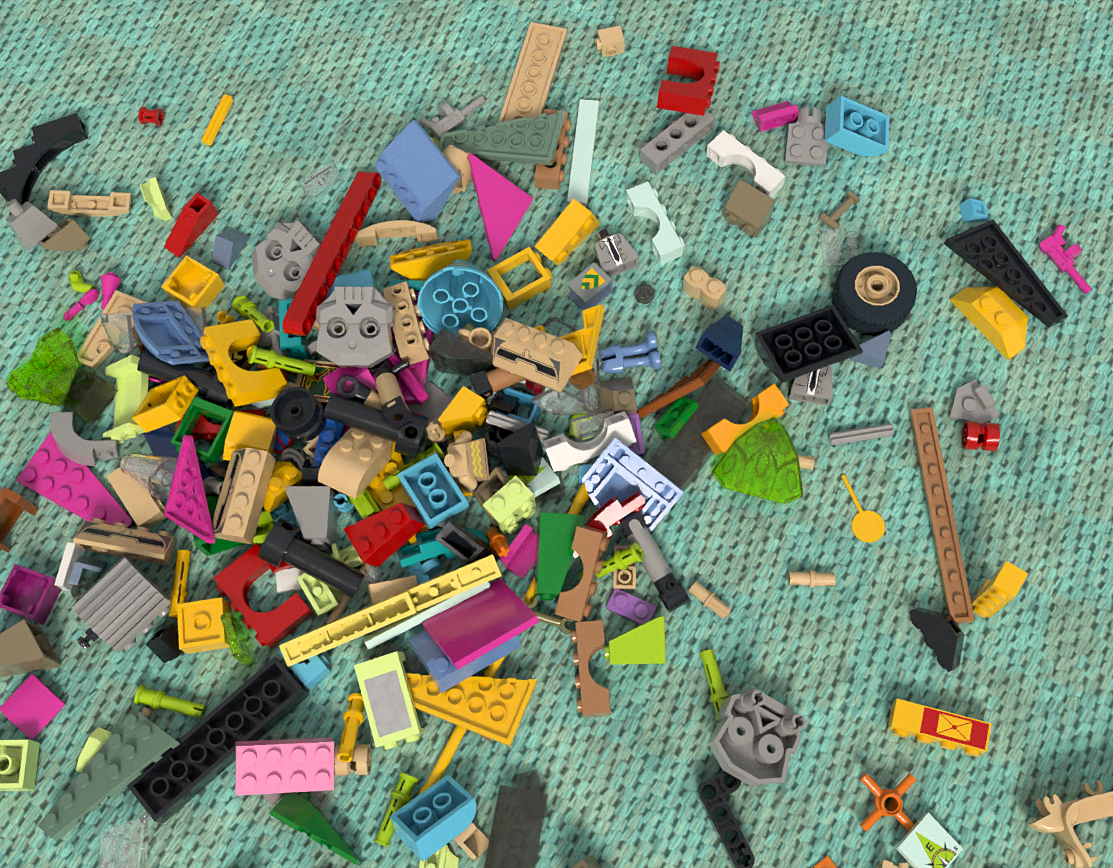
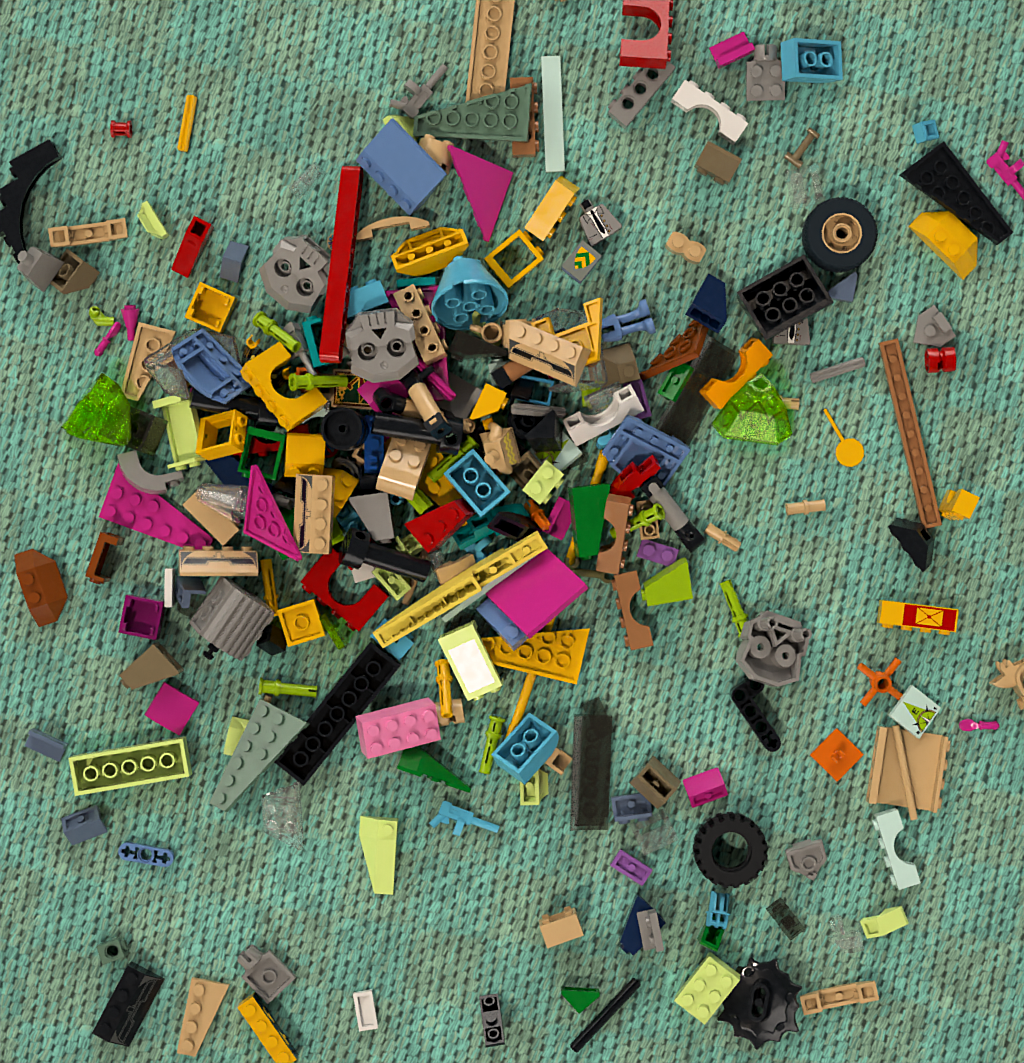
camera: 15 degrees left, 20 degrees up
(644, 202) = (619, 164): light aqua arch -> none
(644, 293) = (631, 258): clear smoke plate -> none

